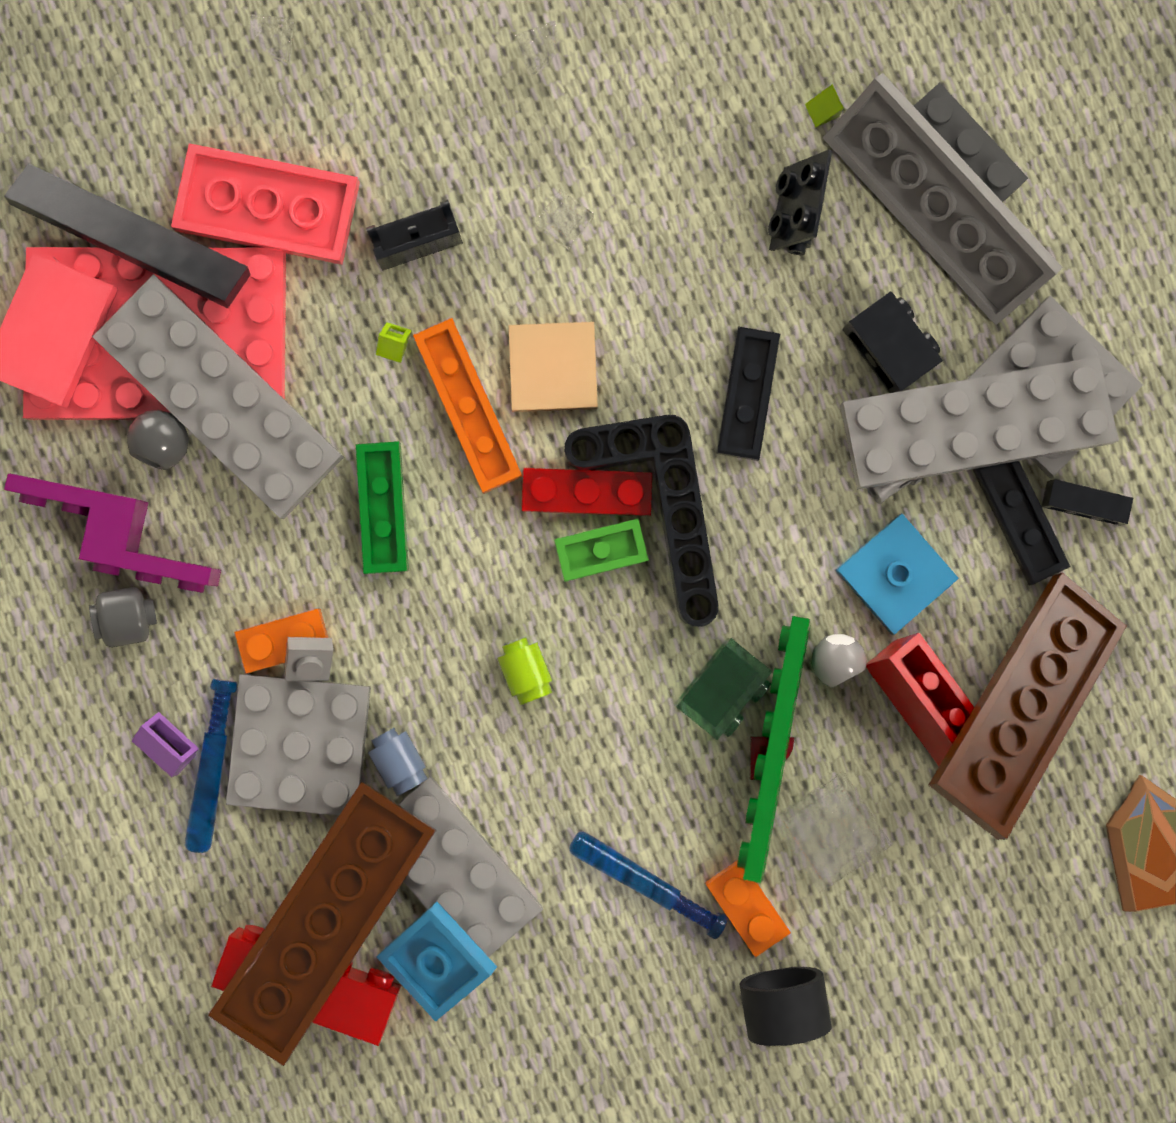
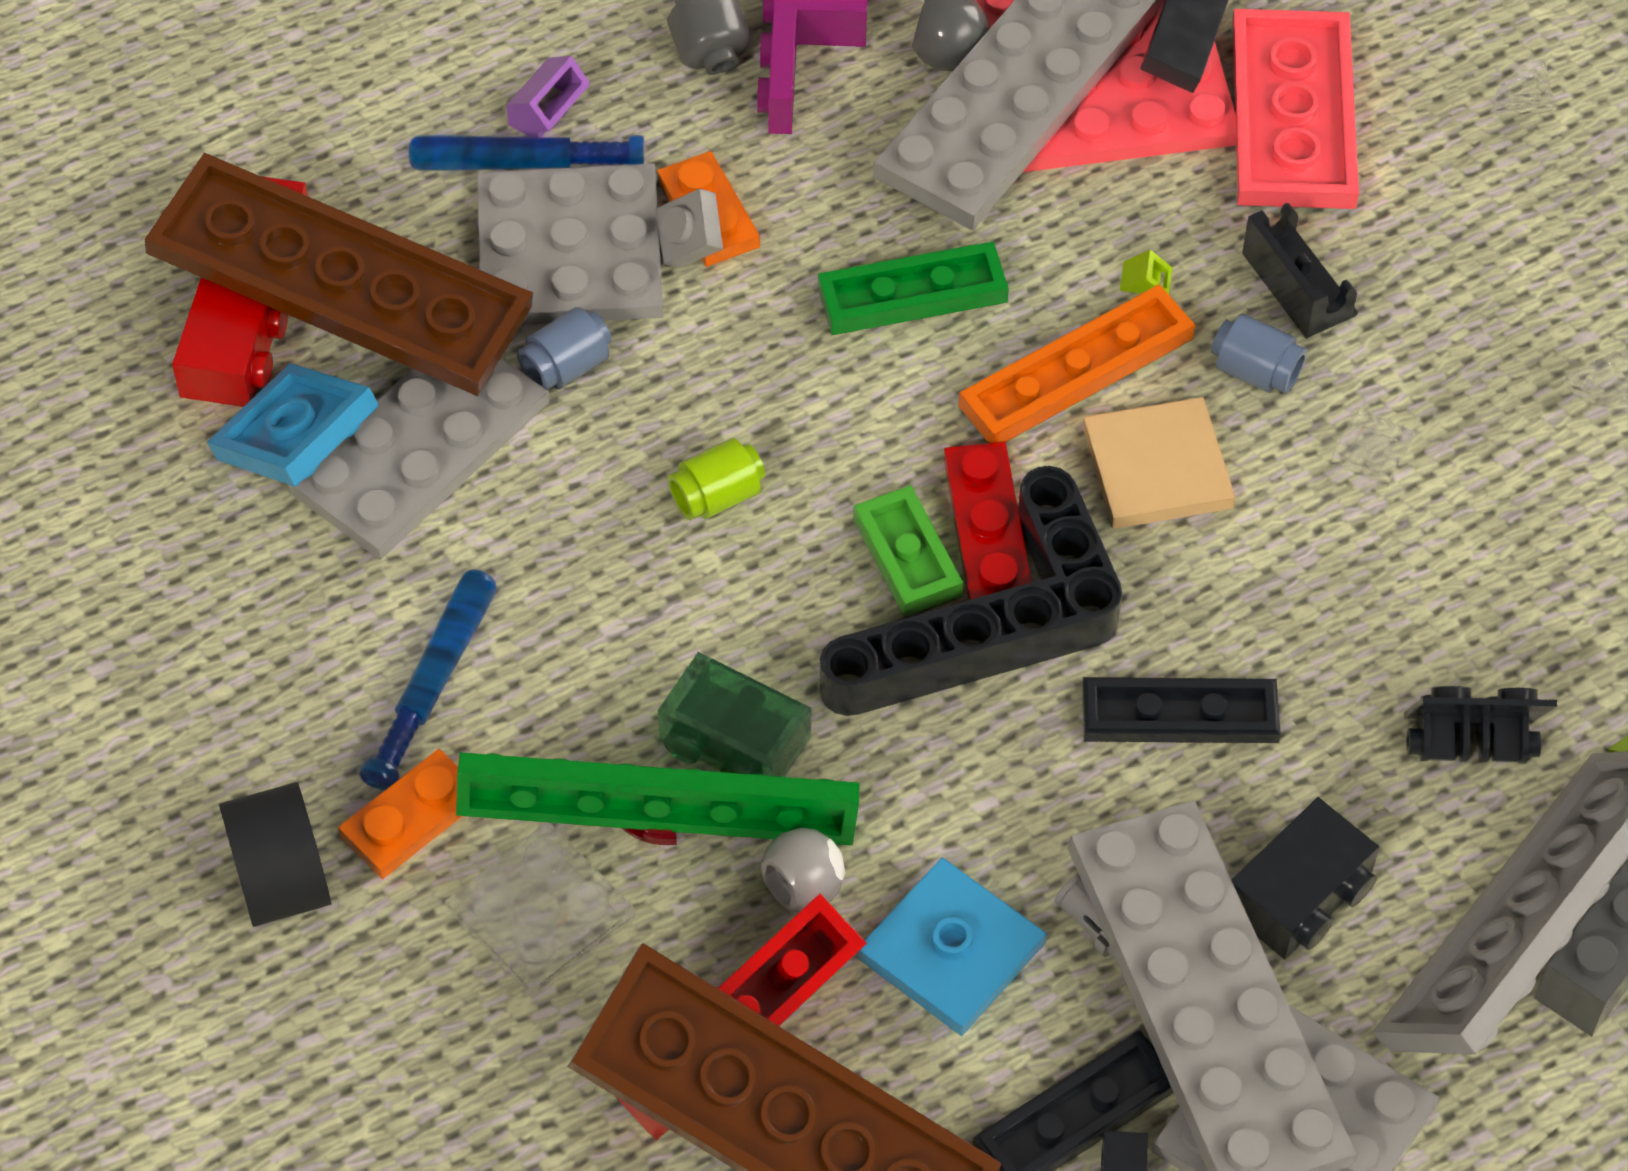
camera: 85 degrees right, 30 degrees down
(481, 279) = (1258, 354): none -> sand blue brick

